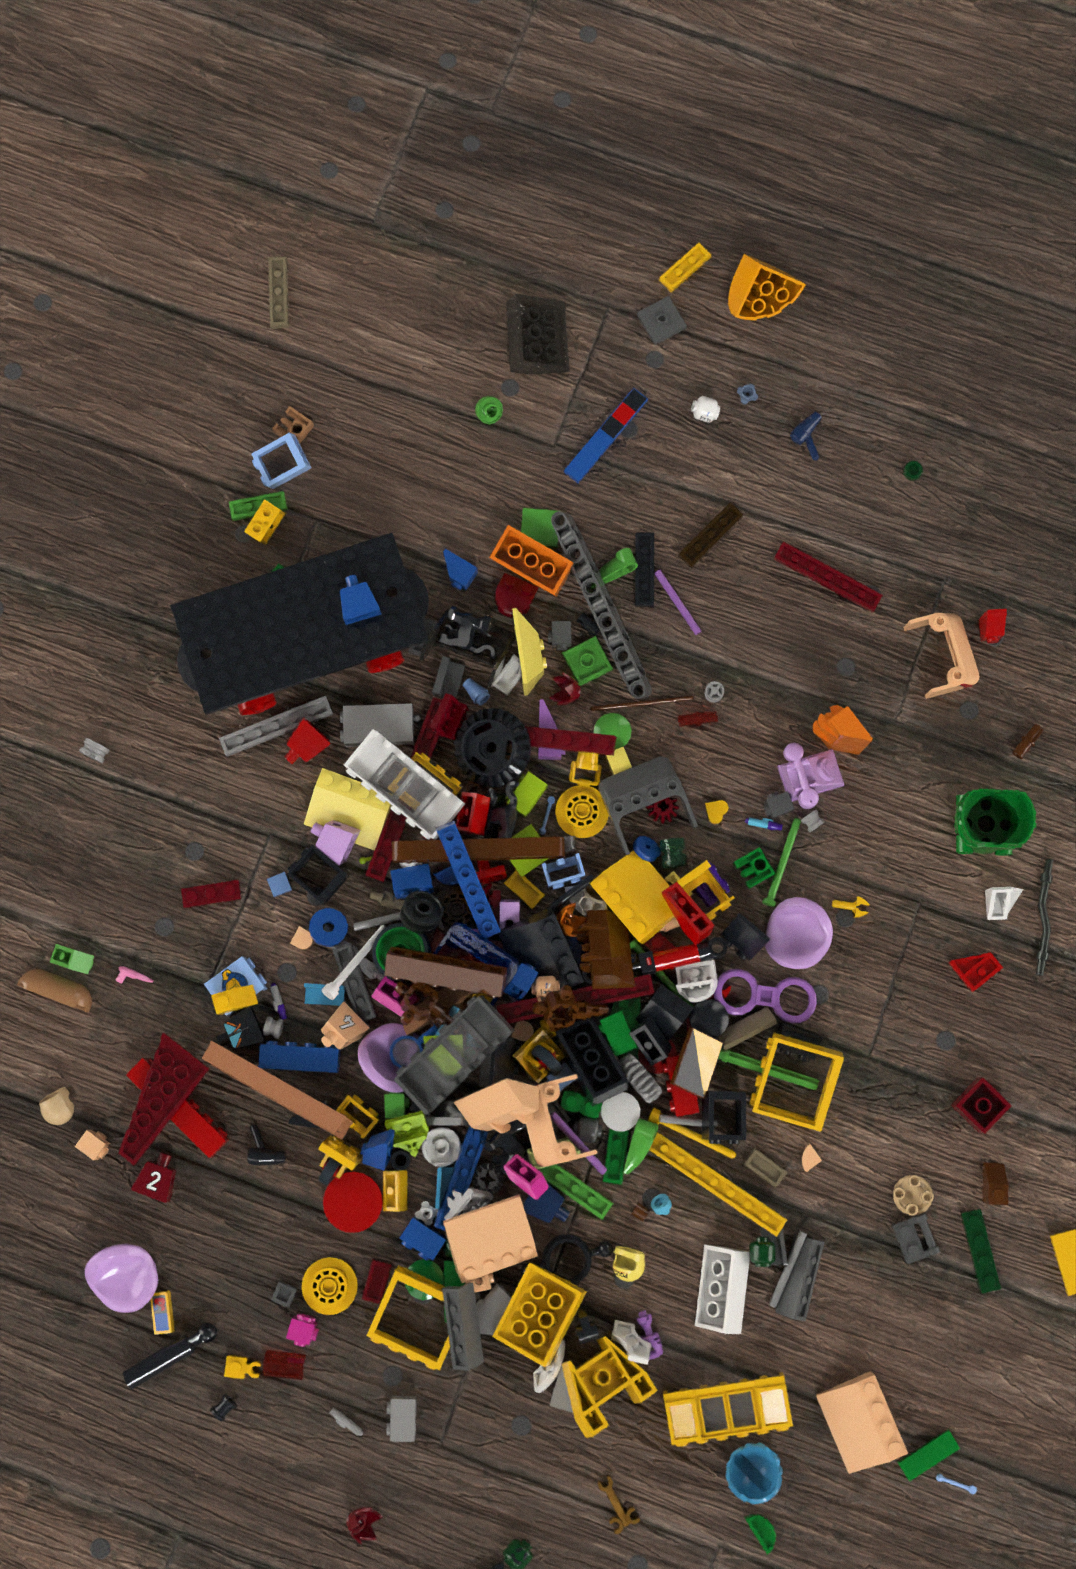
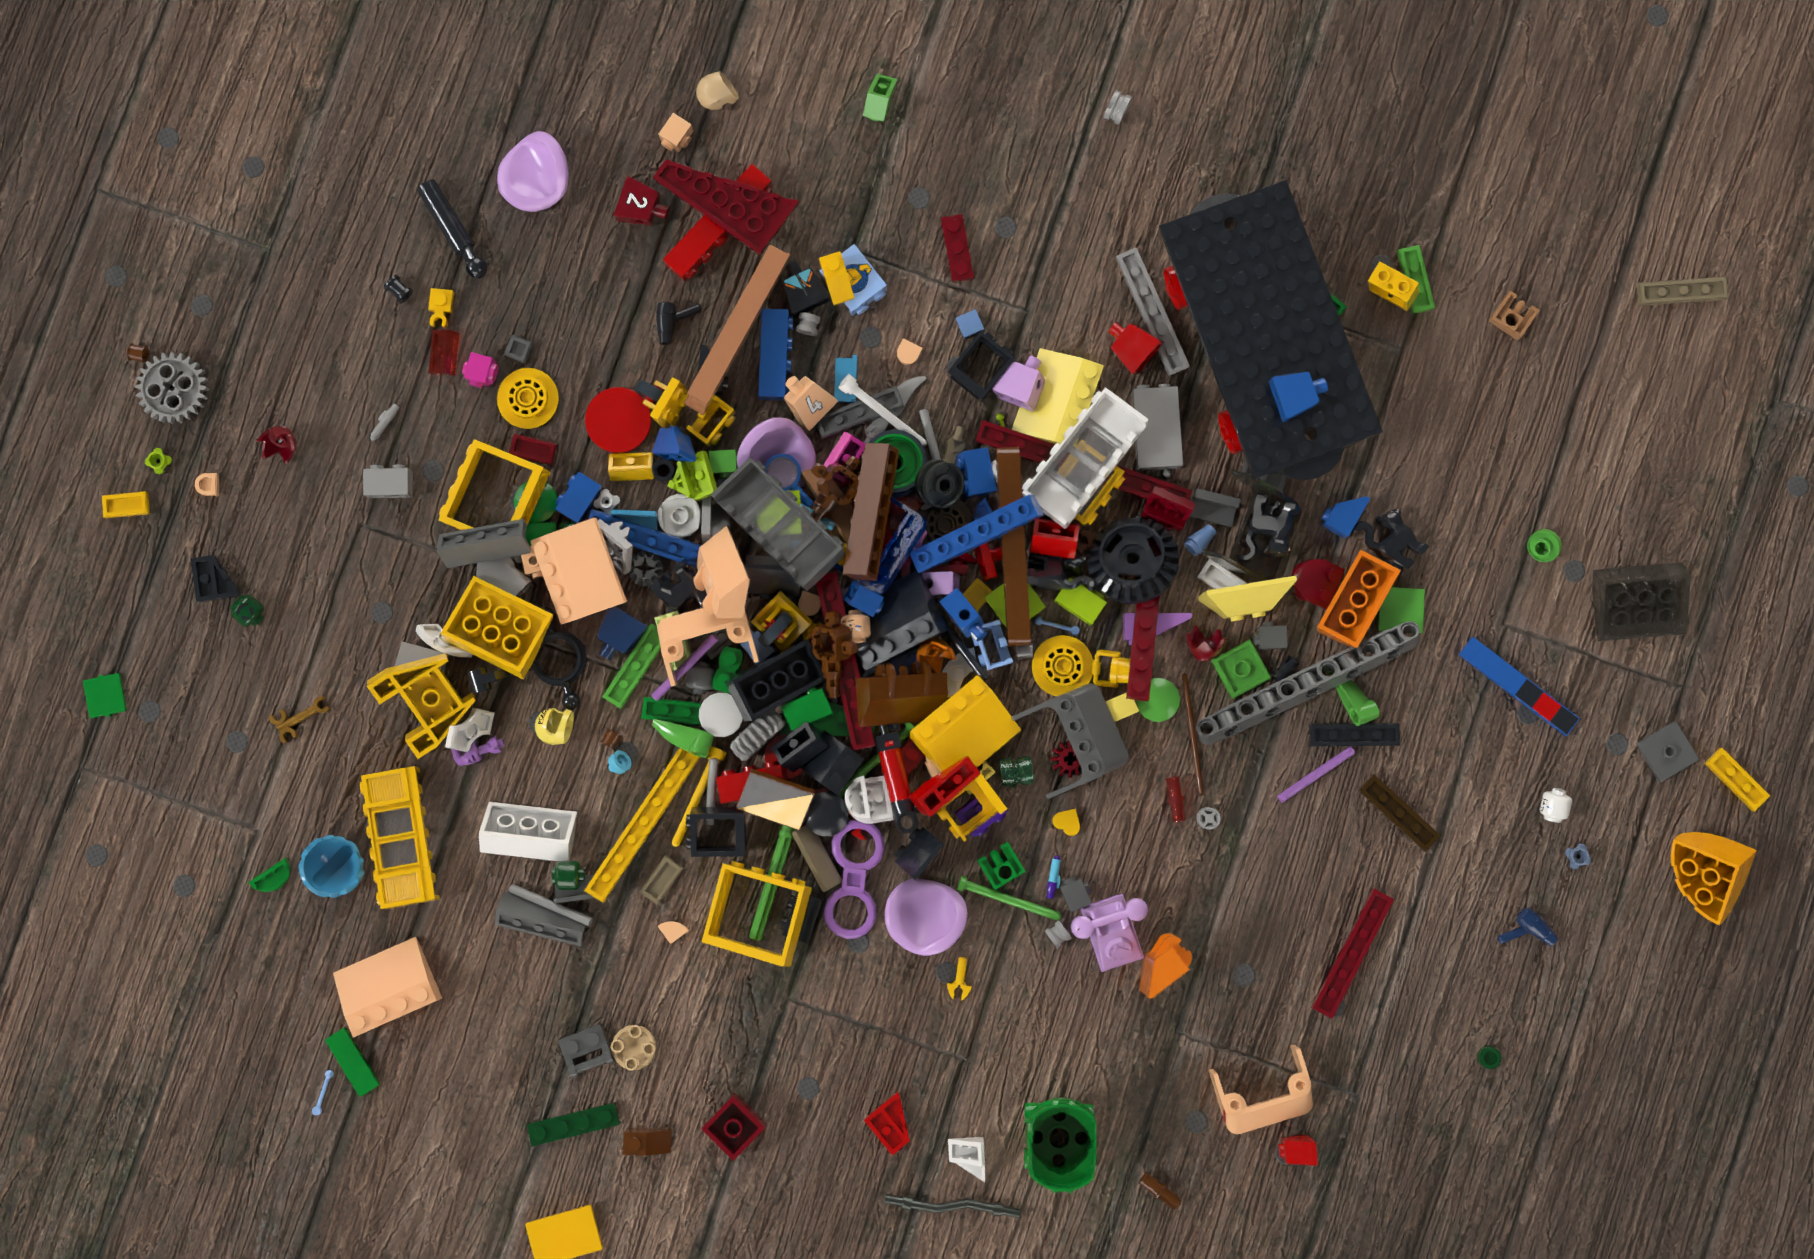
camera: 90 degrees right, 5 degrees up
(56, 988) = (846, 83): medium nougat brick -> none
(125, 971) = (865, 163): bright pink bar -> none
(162, 1312) = (497, 218): slope -> none
(278, 1003) = (836, 328): light grey piece -> none
(297, 452) = (1479, 321): light blue window -> none
(330, 916) = (934, 377): blue tile -> none
(483, 529) = (1395, 543): none -> black animal
(526, 1176) = (646, 609): dark pink brick -> none
(533, 898) = (963, 615): none -> blue torso
(646, 848) = (1020, 740): blue piece -> none

